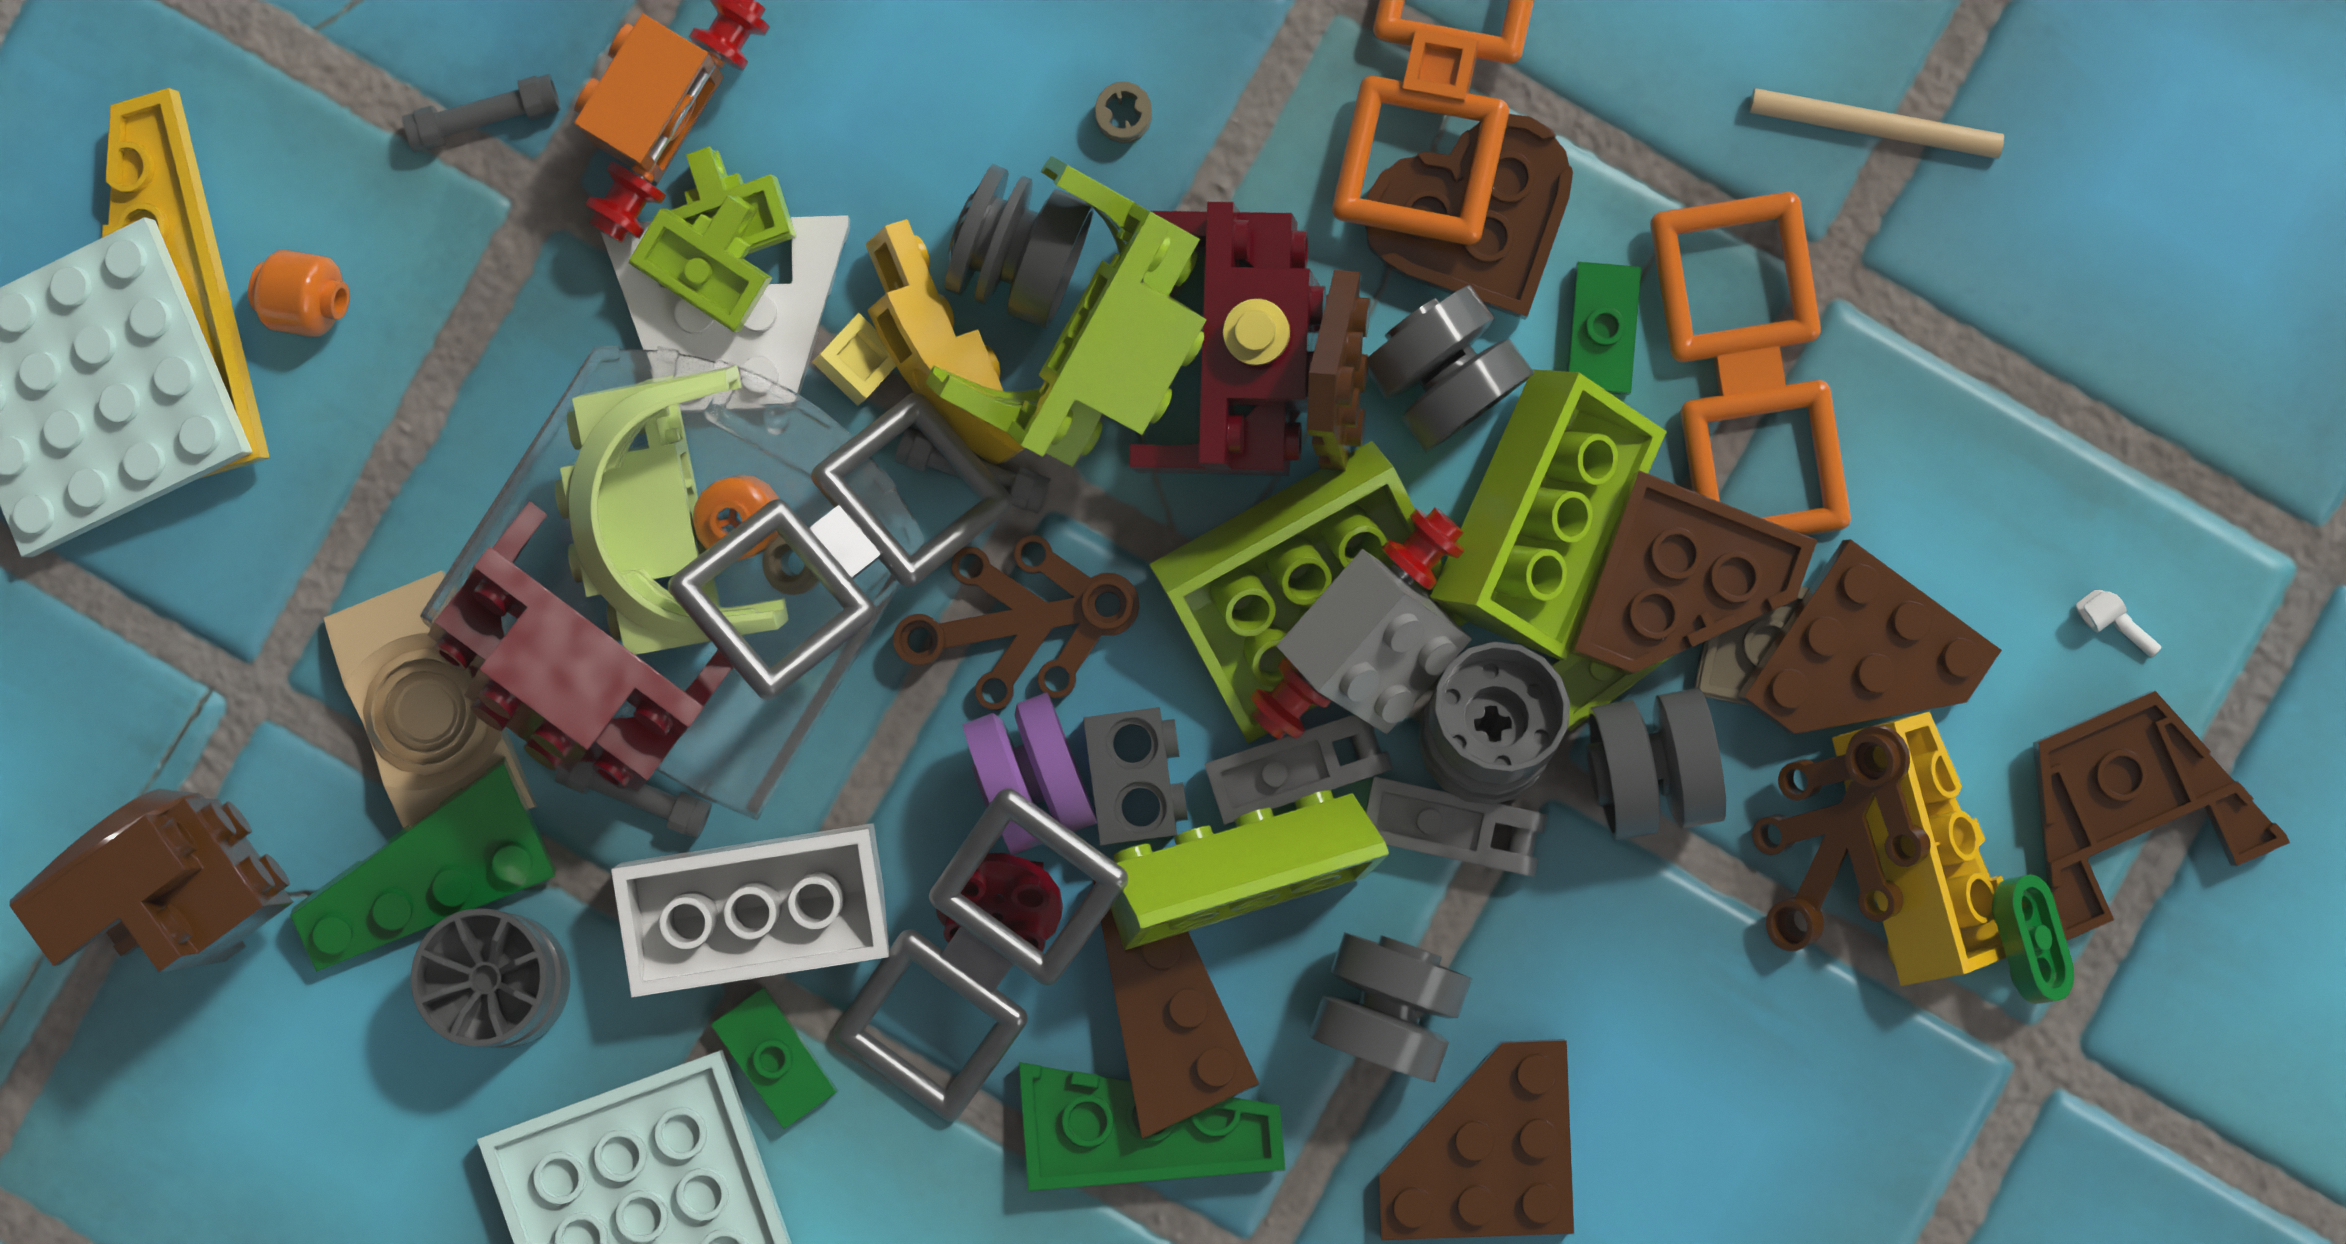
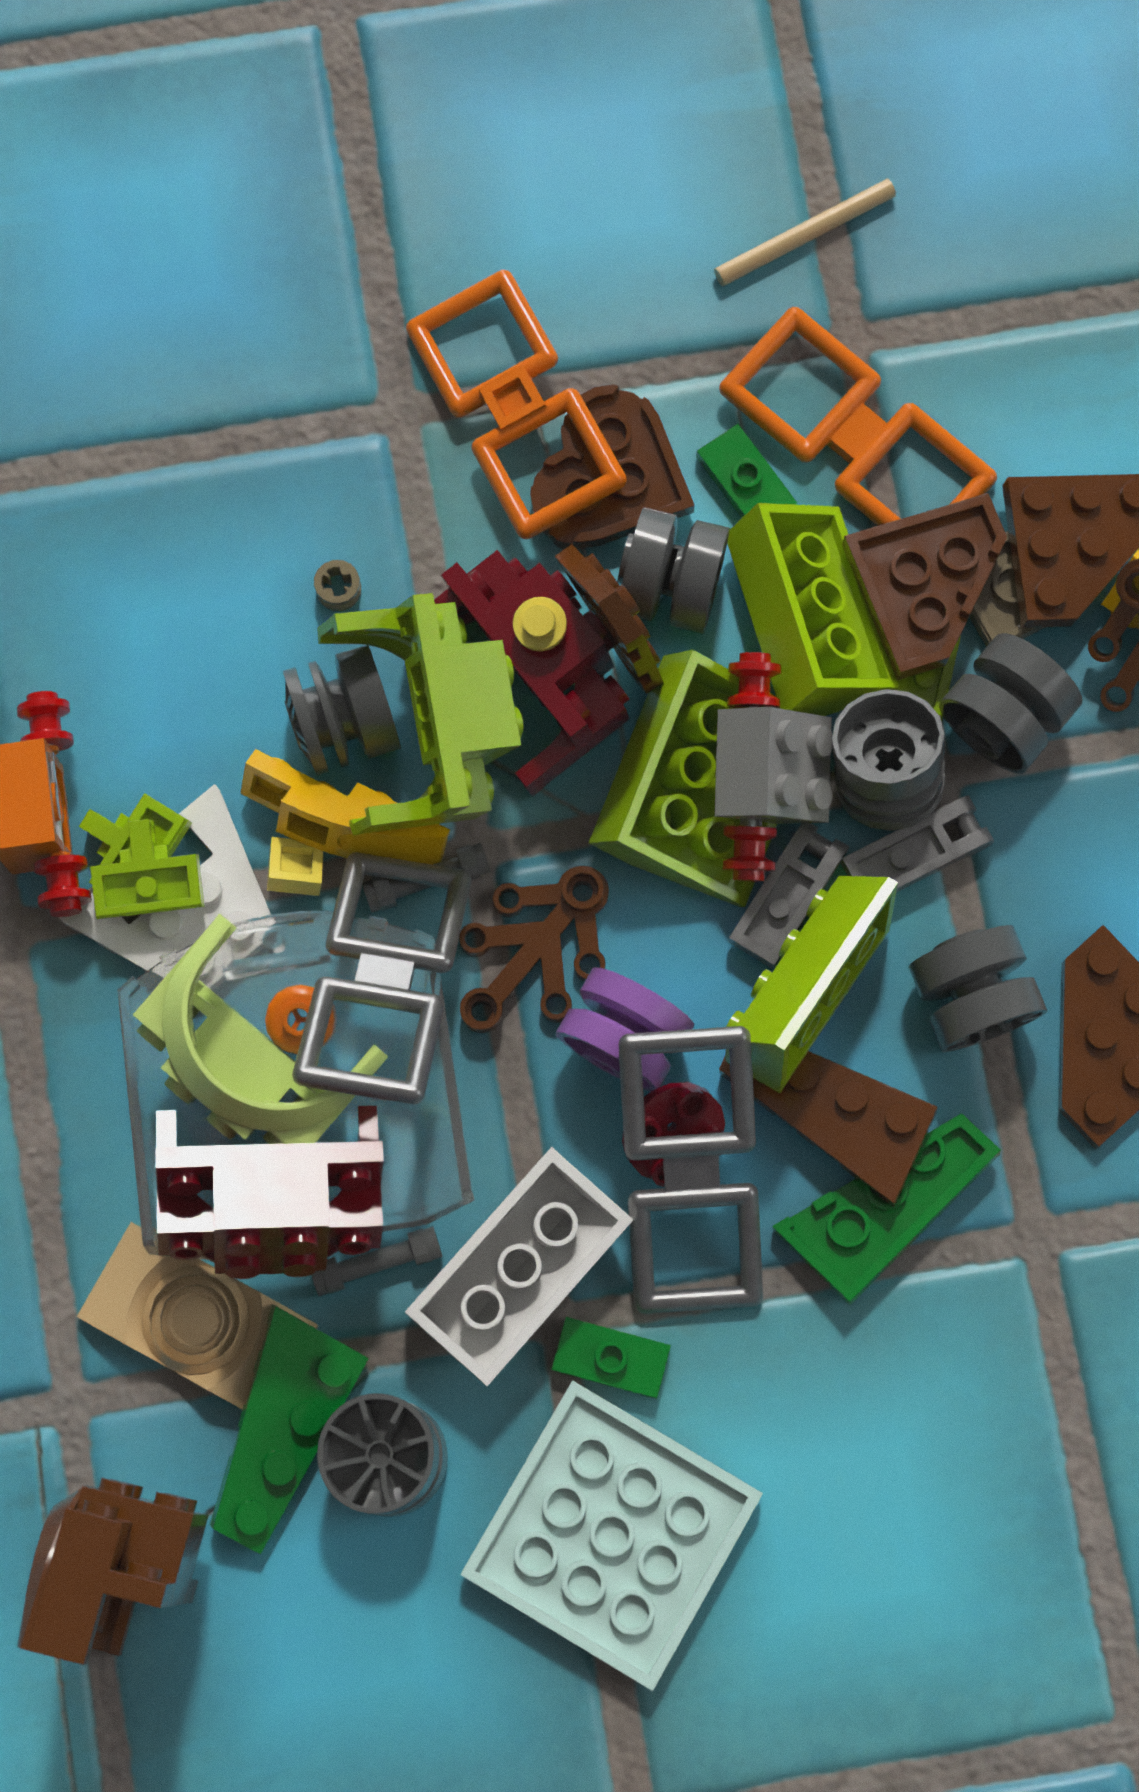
camera: 40 degrees left, 10 degrees down
(779, 574) = (350, 1035): dark tan plate -> none
(1116, 778) = (701, 973): dark grey brick -> none

